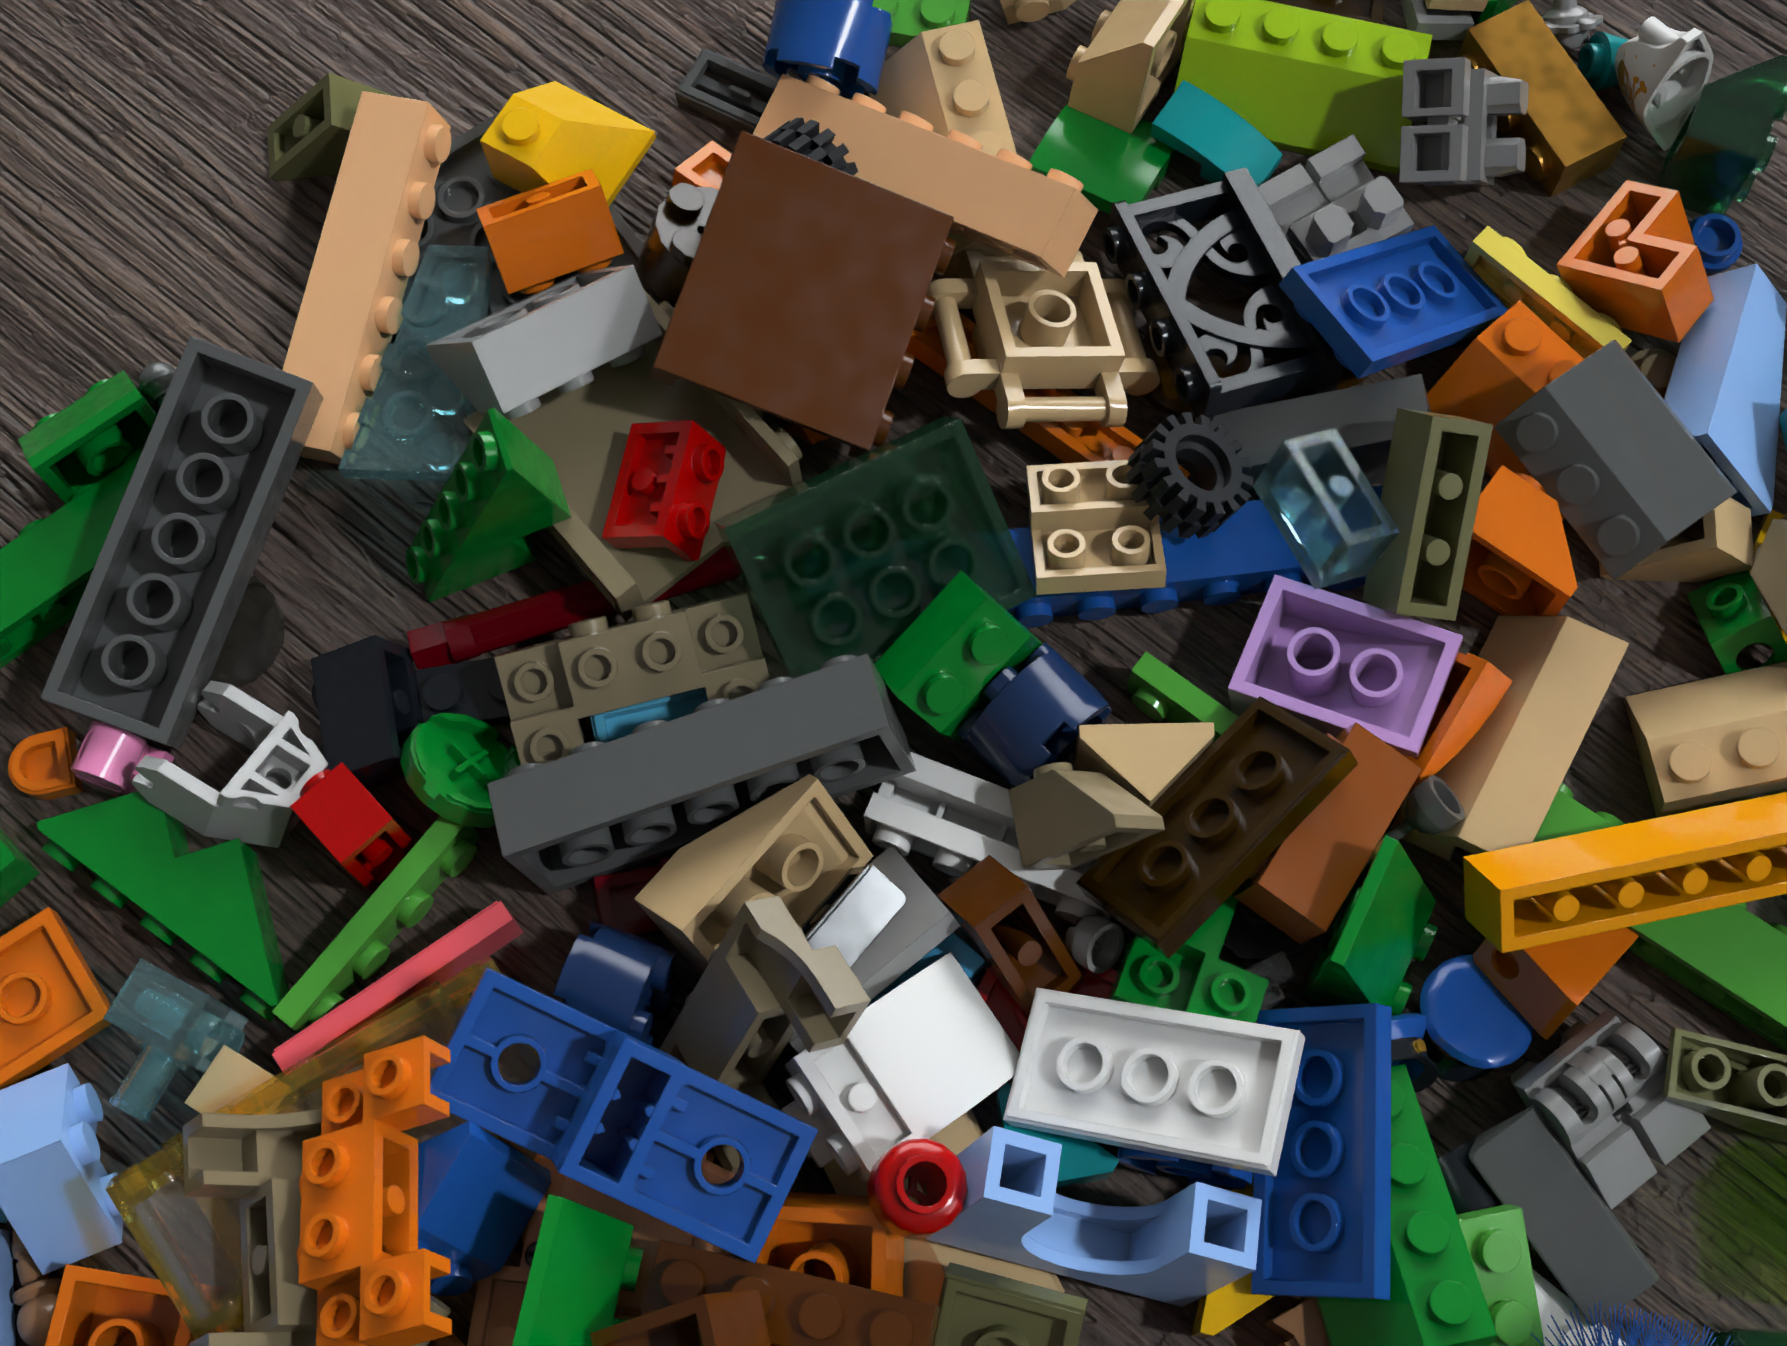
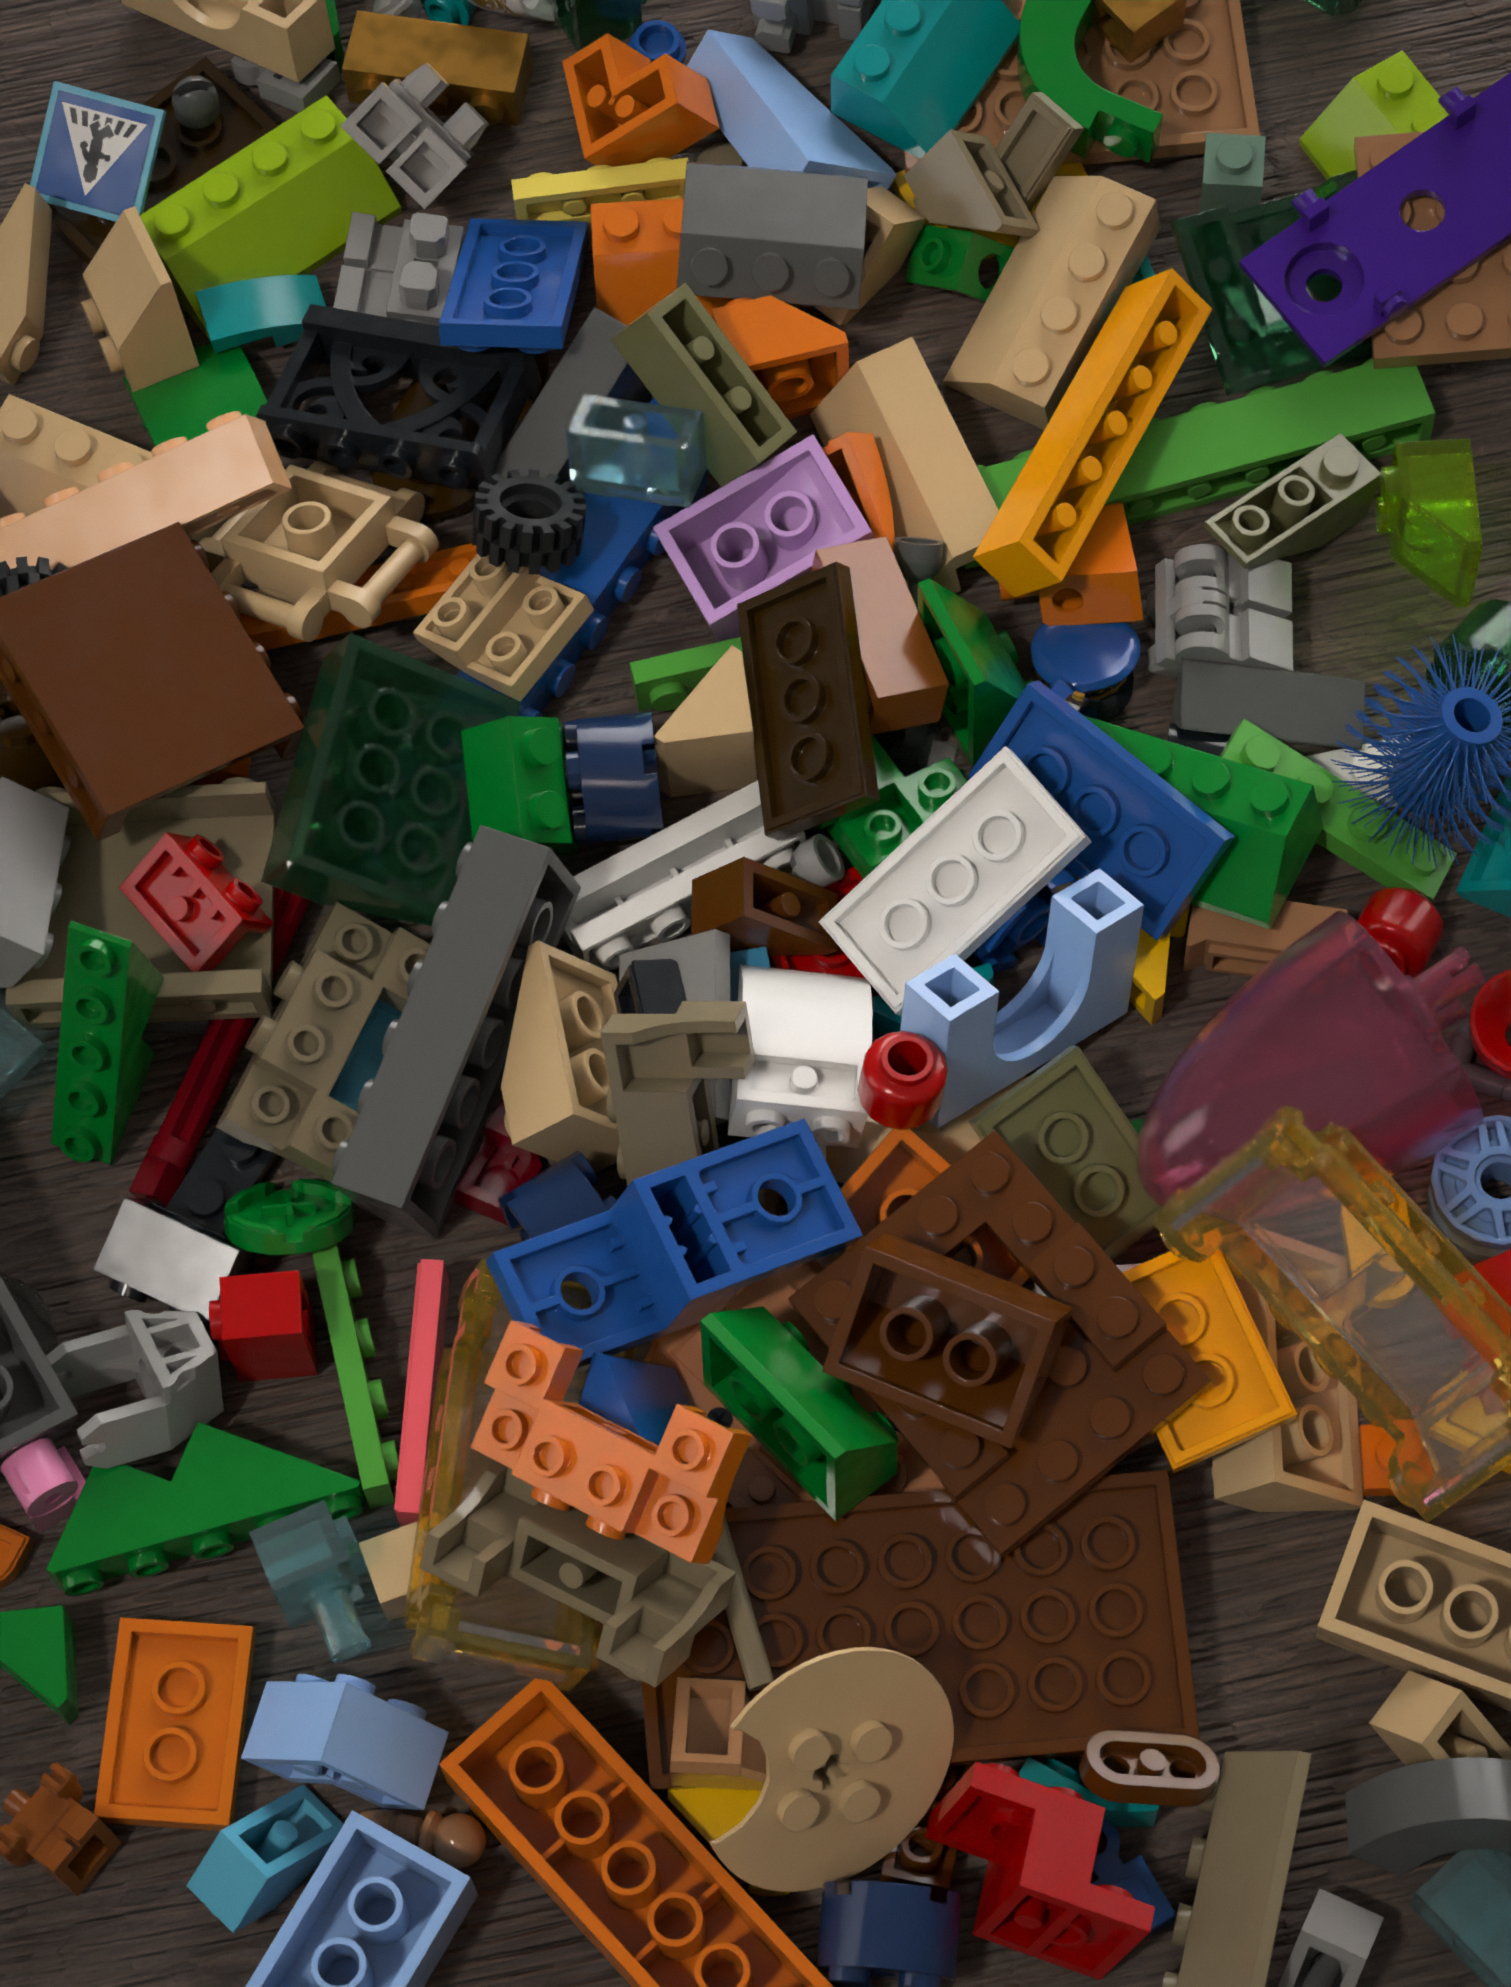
camera: 50 degrees left, 5 degrees down
(1076, 817) = (720, 791): dark tan slope -> none

